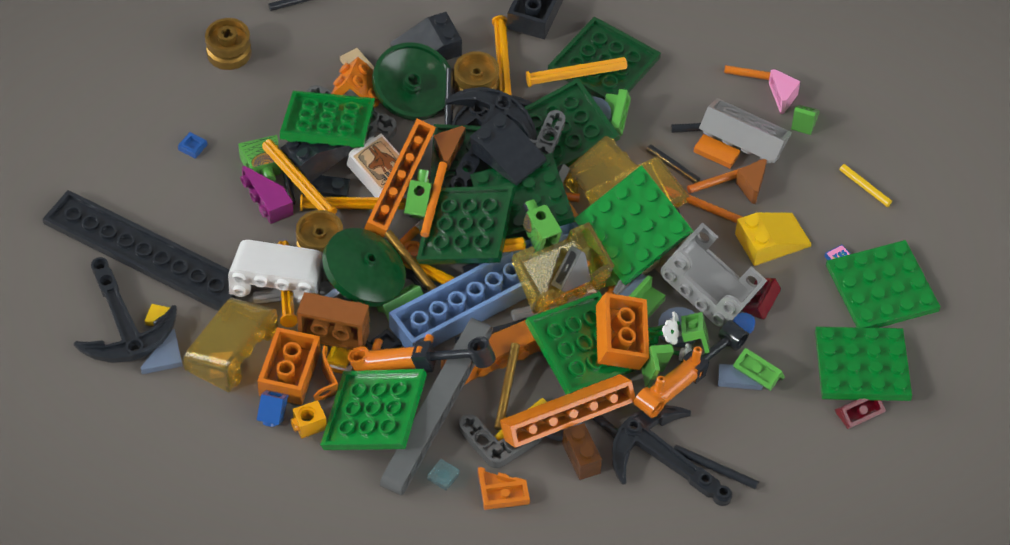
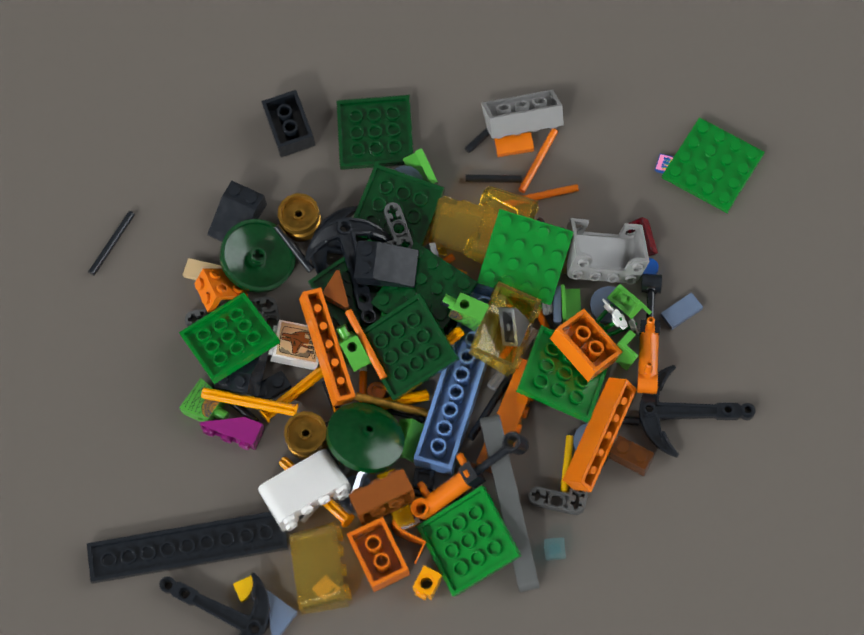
camera: 30 degrees left, 15 degrees up
(192, 145) = (141, 432): blue tile -> none
(228, 43) = (92, 329): pearl gold wheel -> none
(272, 408) = (396, 596): blue brick -> none
(499, 23) = (298, 182): light orange axle -> none
(502, 490) = (603, 528): orange wing -> none
(507, 384) = (539, 447): pearl gold bar -> none
(575, 71) = (365, 157): light orange axle -> none
(721, 469) = (724, 393): black bar -> none
(747, 72) = (484, 61): orange bar -> none
(750, 179) = (560, 151): dark orange slope -> none
(758, 369) = (692, 298): bright green panel -> none
(770, 236) = (609, 184): yellow slope -> none
(784, 89) = (518, 59): bright pink slope -> none
(804, 119) = (552, 70): bright green slope -> none
(859, 411) = (777, 272): dark red slope -> none
(863, 363) = (752, 237): green plate -> none
(865, 185) = (635, 93): yellow bar -> none

